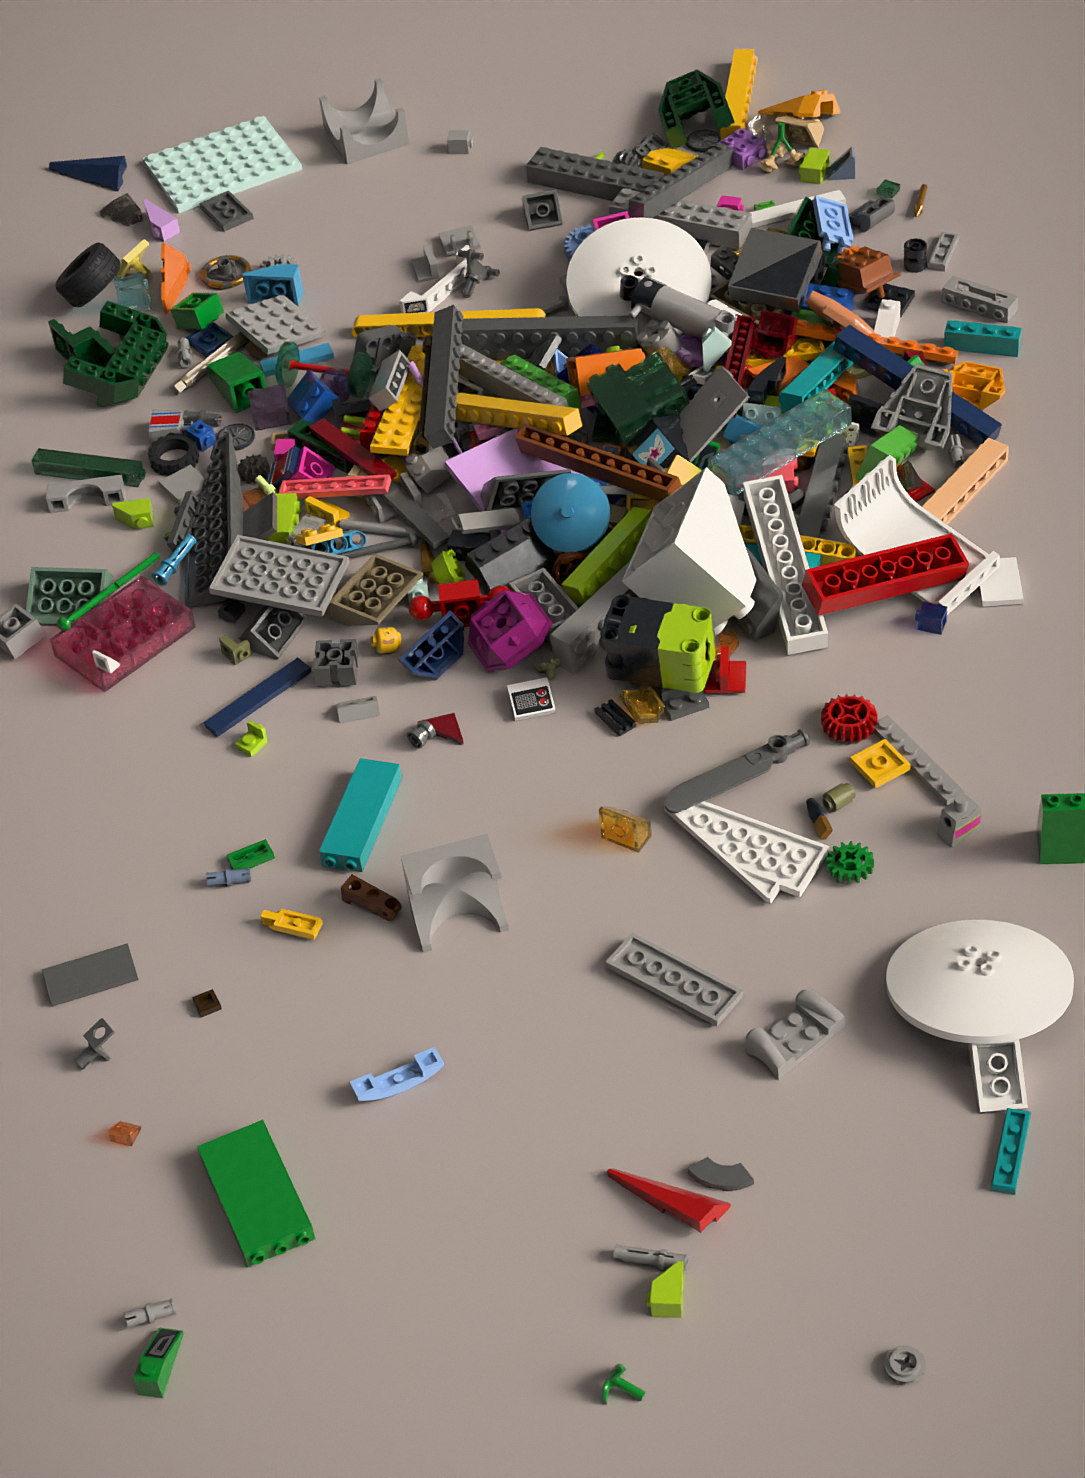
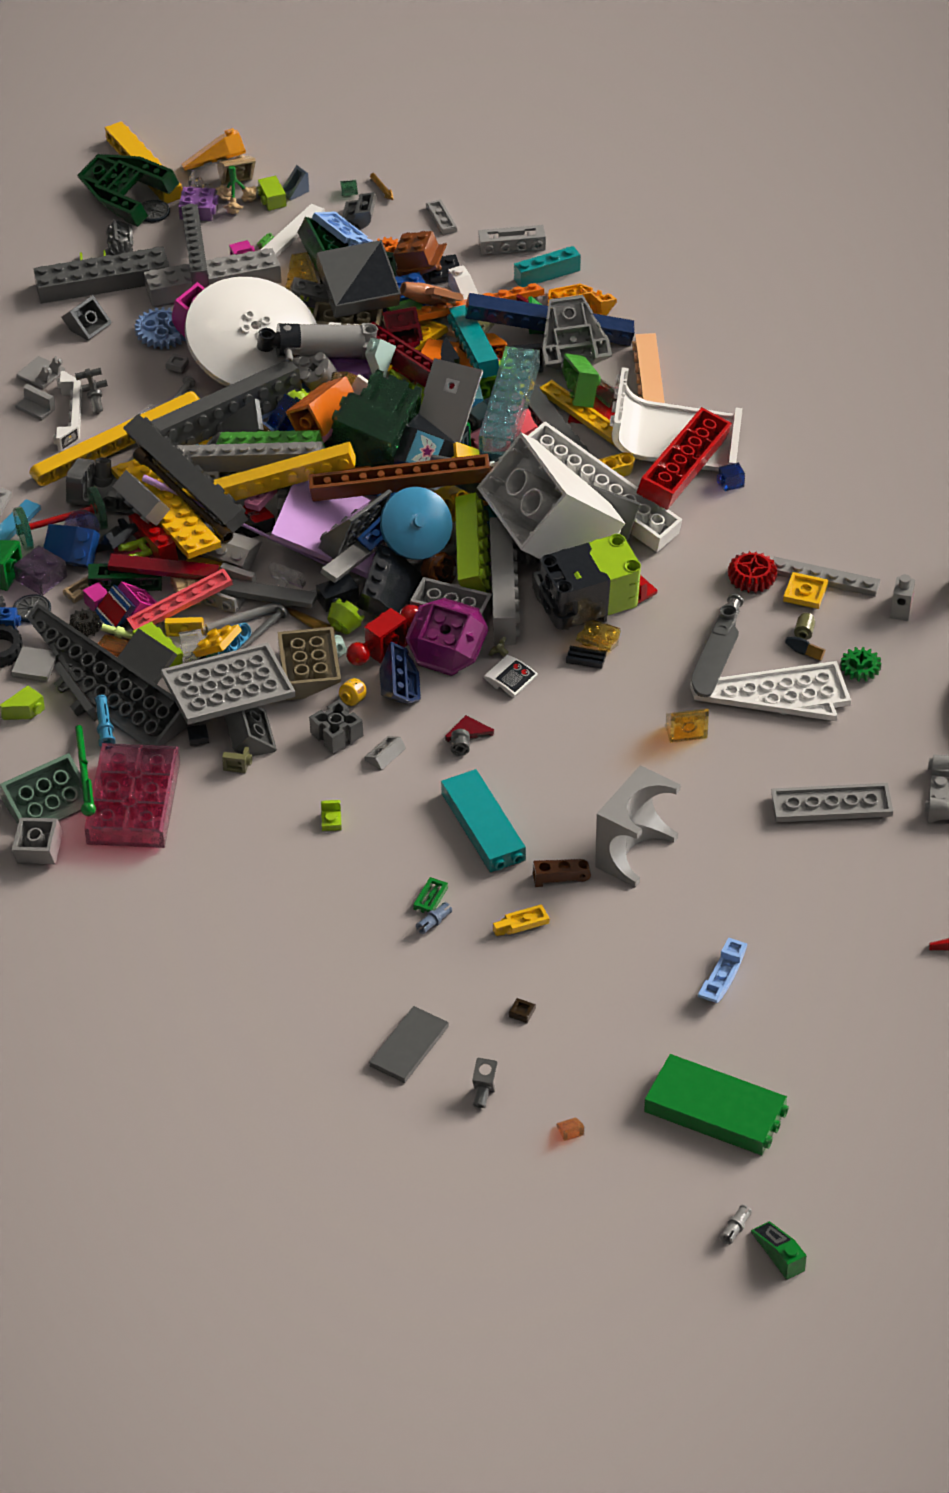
camera: 45 degrees left, 0 degrees up
(104, 662) = (159, 818): white slope -> none
(257, 697) = (296, 785): dark blue tile -> none
(666, 160) = (149, 237): yellow slope -> none
(682, 703) = (625, 620): dark grey bracket -> none
(915, 255) = (430, 222): black wheel -> none
(956, 451) = (619, 357): light grey axle -> none
(1003, 585) = (753, 434): white tile -> none

